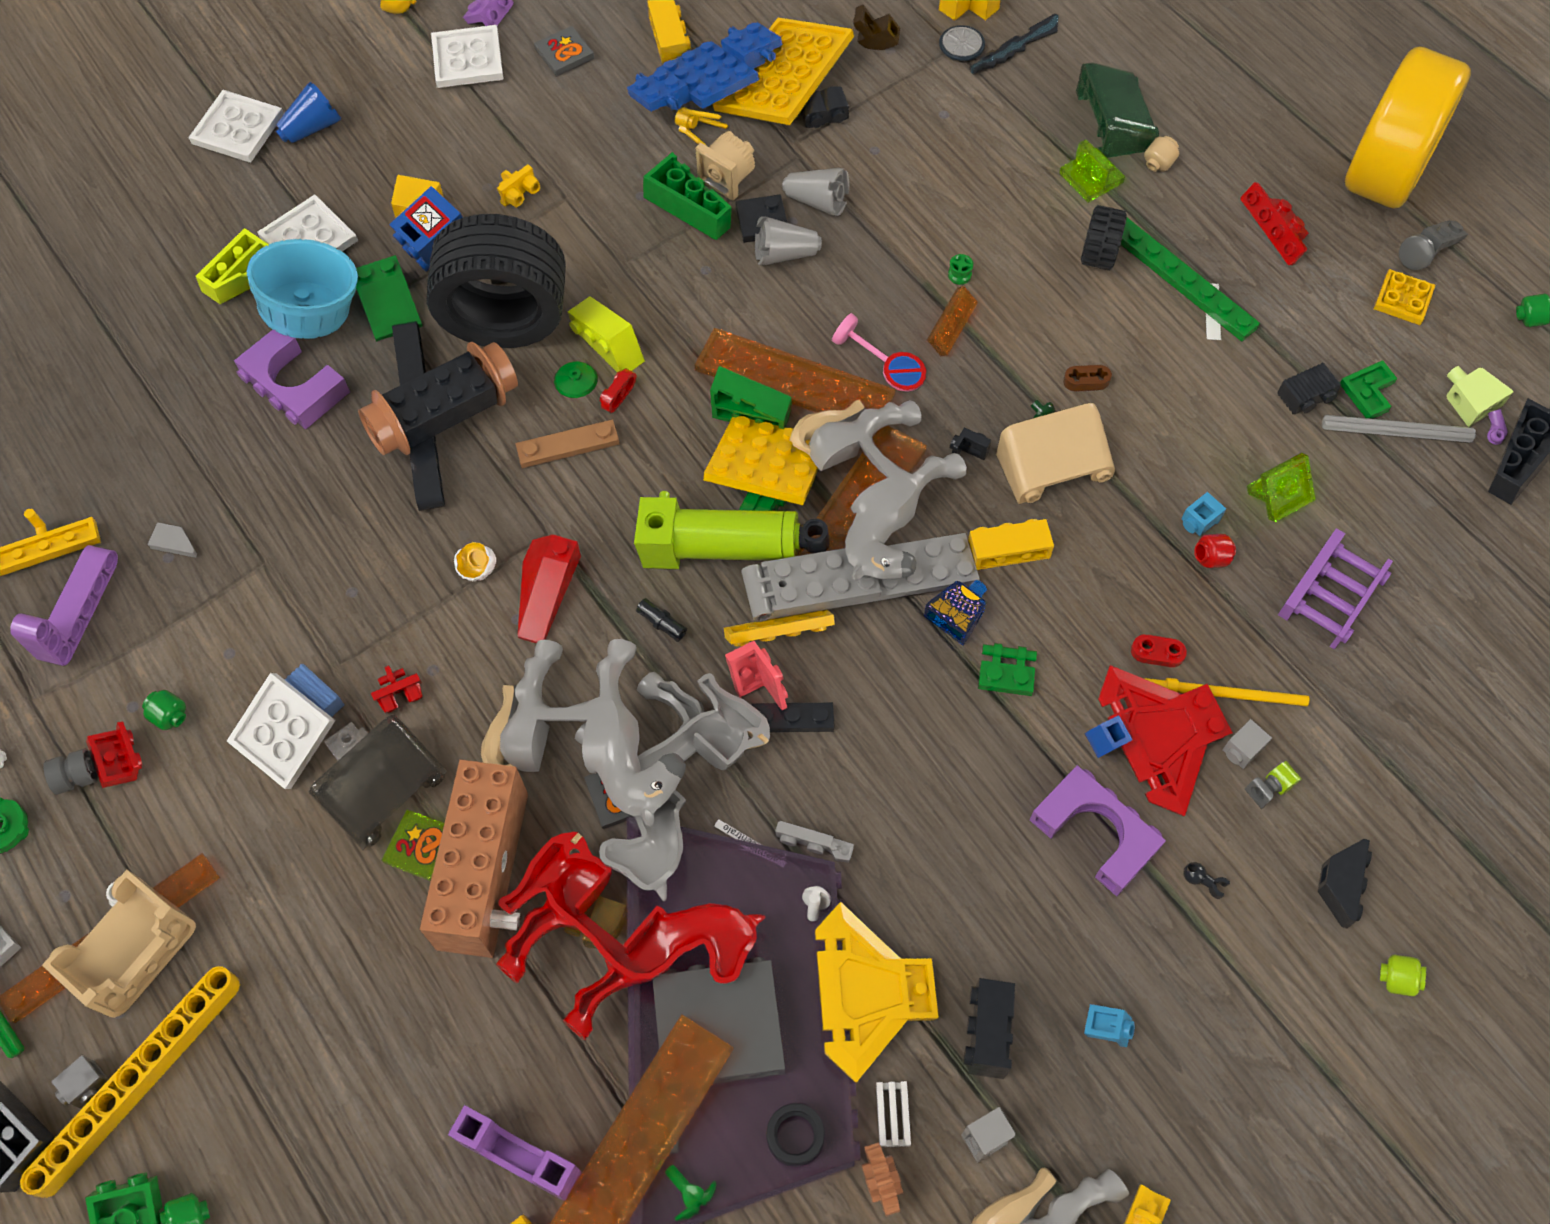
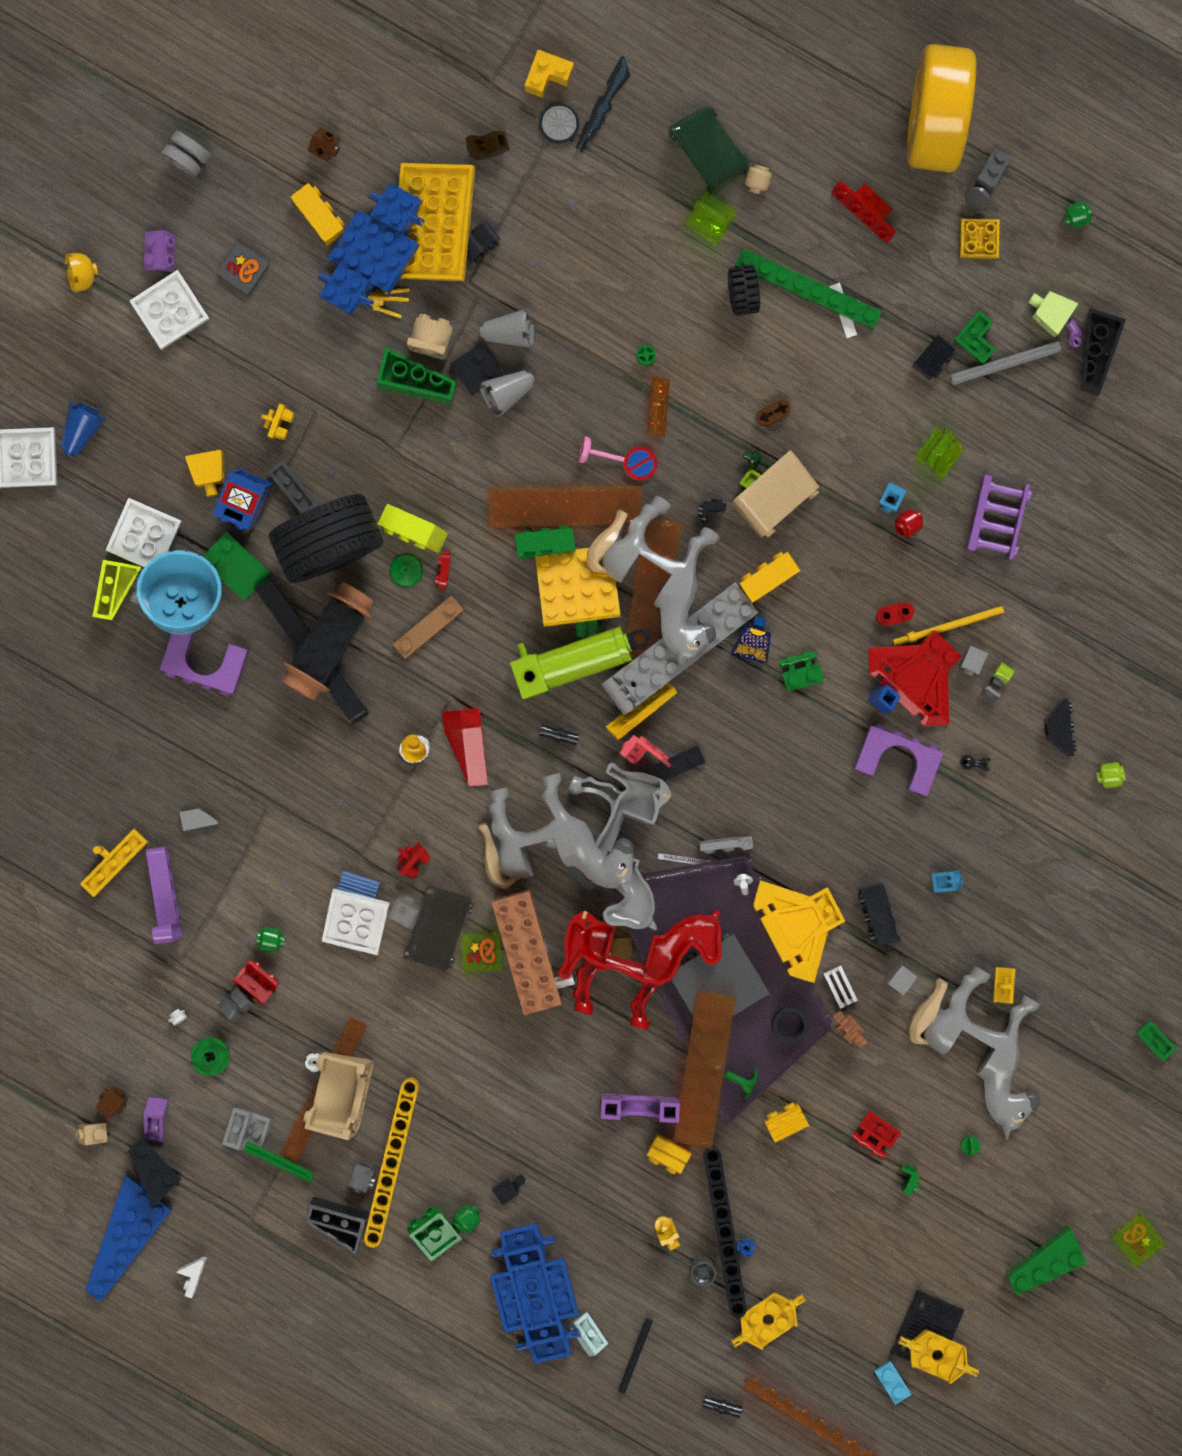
camera: 25 degrees left, 25 degrees up
(267, 1201) = (507, 1189): none -> black plate

